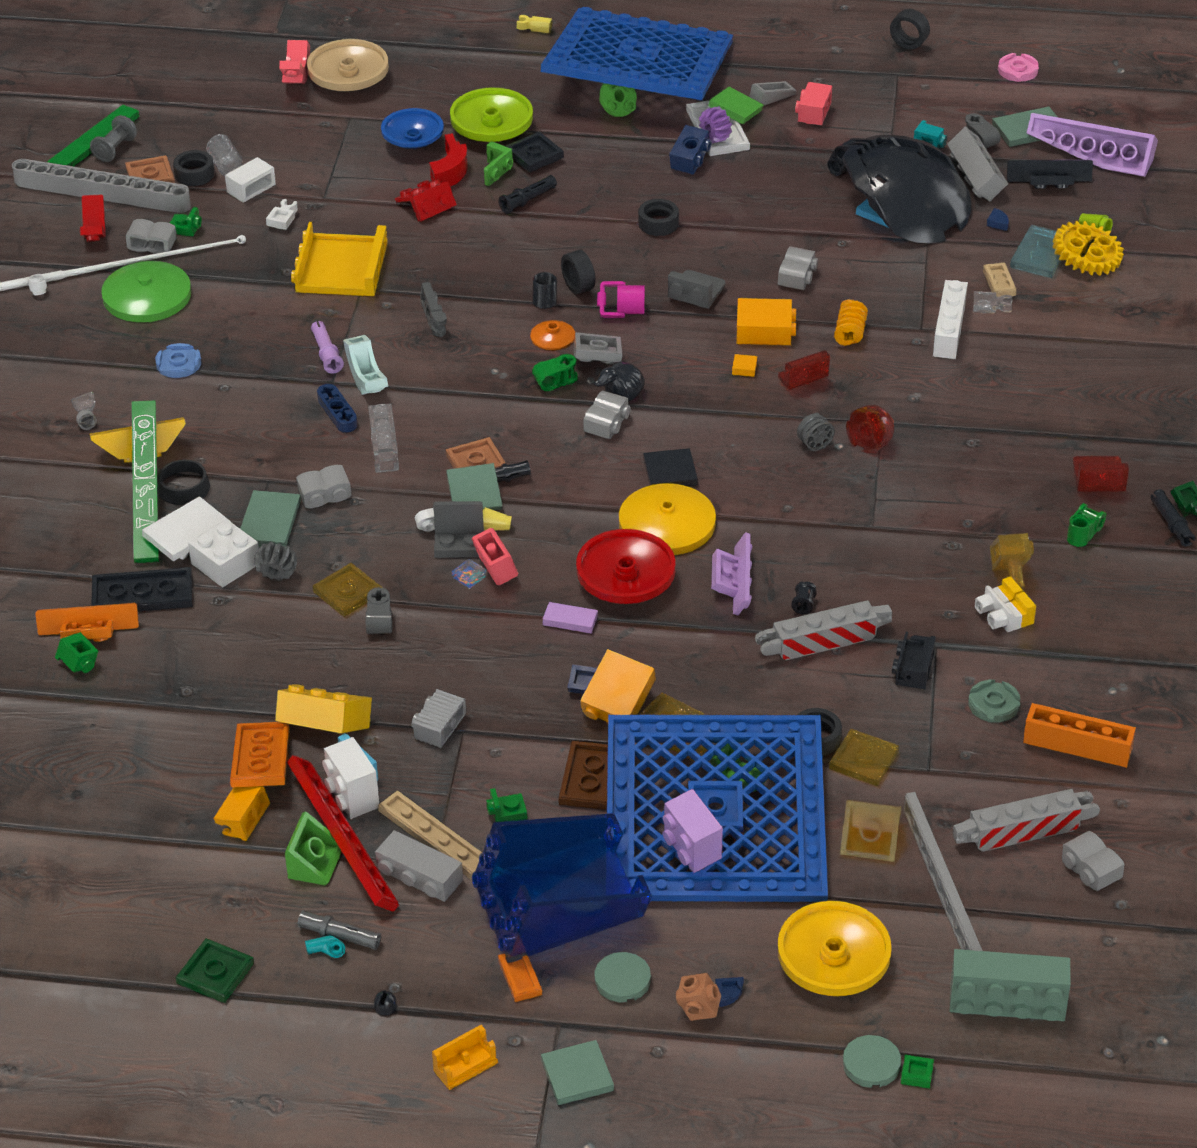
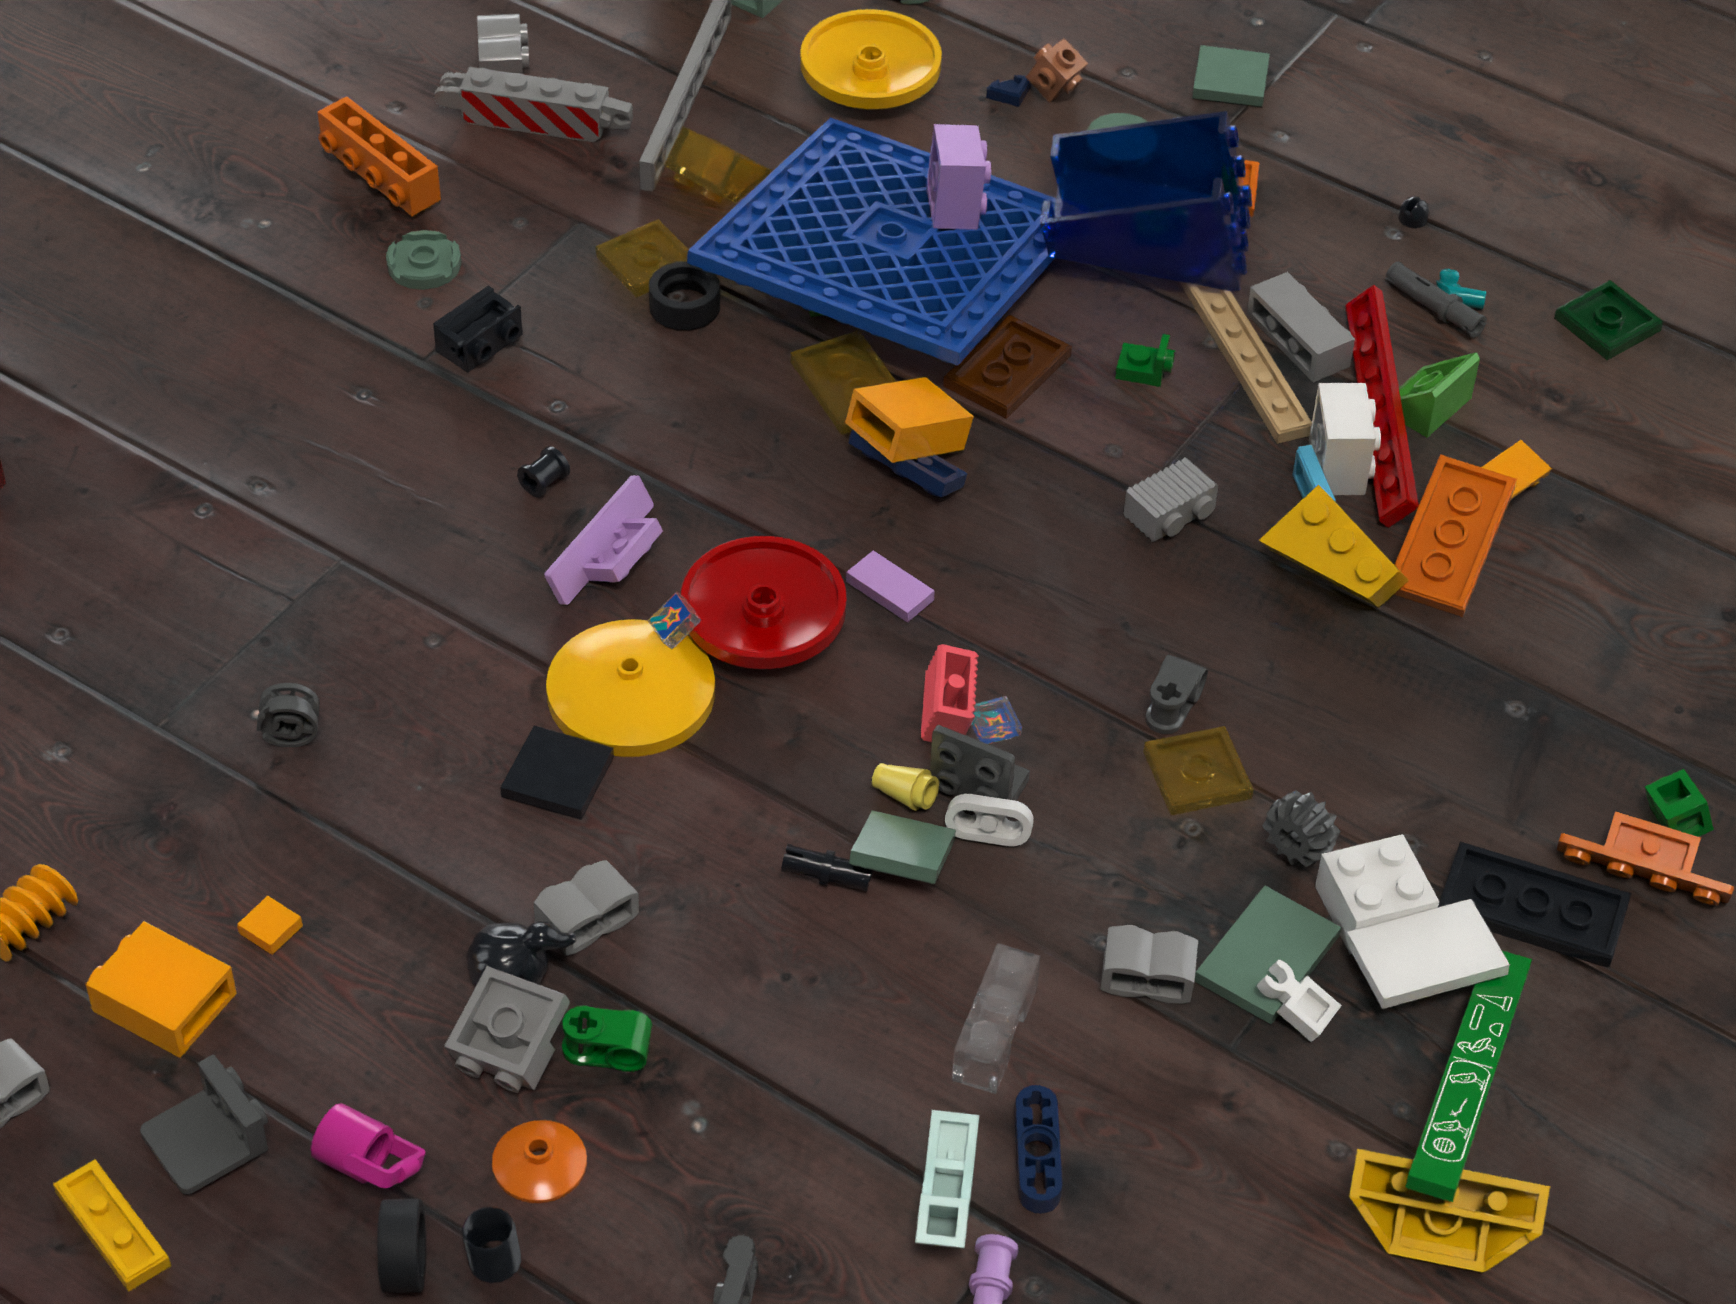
camera: 155 degrees left, 5 degrees up
(182, 496) = (1377, 1127): black tyre -> none
(239, 495) = (1304, 1002): none -> white plate
(464, 1057) = (1353, 124): light orange hinge -> none
(474, 454) = (856, 928): nougat tile -> none
(661, 532) = (674, 620): none -> tile
(706, 256) = (112, 1225): none -> yellow tile
(805, 370) = (194, 843): clear red bracket -> none
(823, 630) = (562, 407): light grey hinge -> none
(870, 428) = (196, 681): clear red cylinder -> none
(1008, 606) = (285, 352): white hips -> none
(1011, 554) = (219, 387): clear yellow brick -> none
(1084, 525) = (64, 417): green piece -> none

